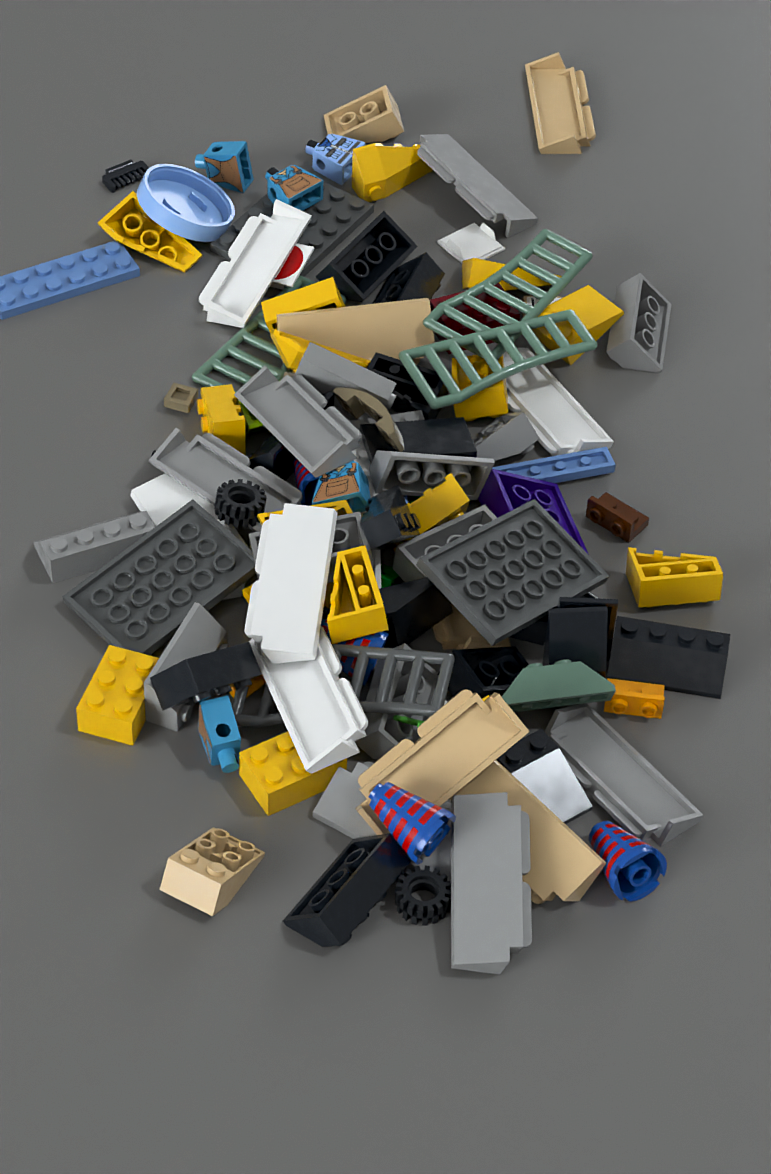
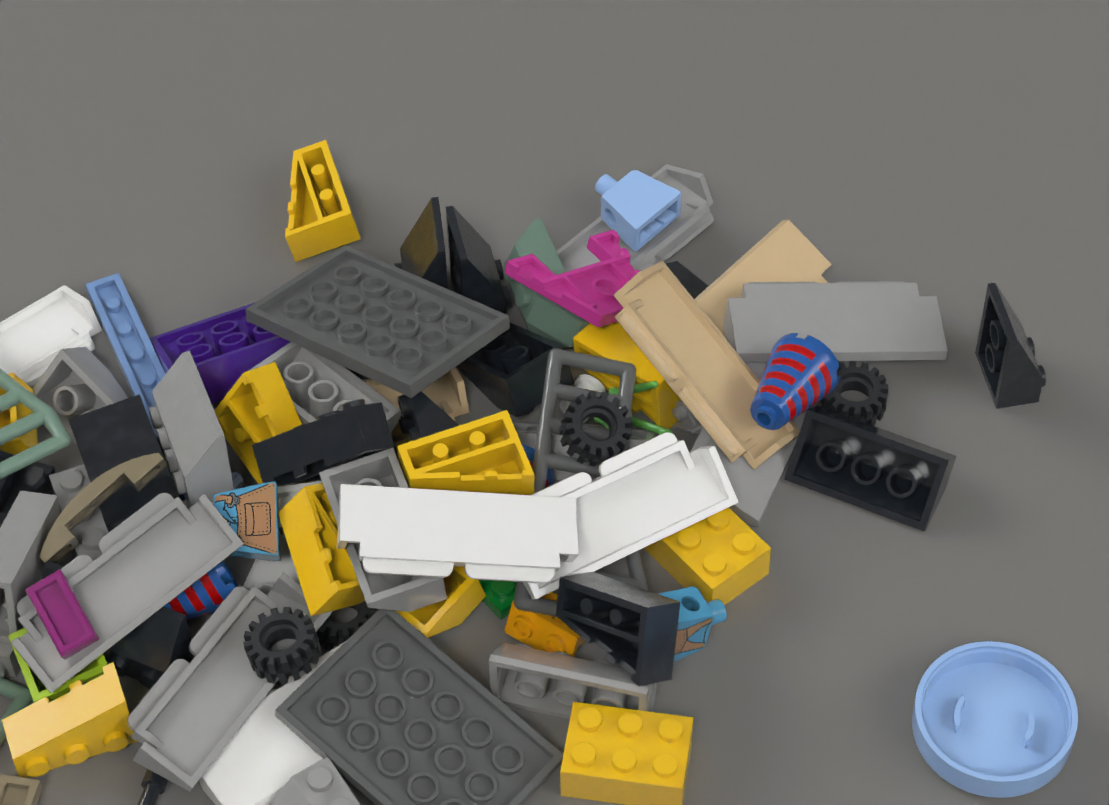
camera: 95 degrees left, 5 degrees up
(90, 917) = (994, 719): none -> light blue piece
(210, 870) = (880, 607): tan slope -> none
(281, 390) = (62, 614): none -> magenta tile
(369, 664) = (600, 408): none -> black tyre
(435, 991) = (1007, 354): none -> black slope
(532, 706) = (585, 290): none -> dark pink wing
(616, 516) = (204, 272): reddish brown bracket -> none
(630, 862) = (757, 212): blue cone -> none
(636, 699) = (505, 226): light orange bracket -> none
(640, 773) = (637, 206): none -> light blue torso
(670, 656) = (448, 172): black slope -> none

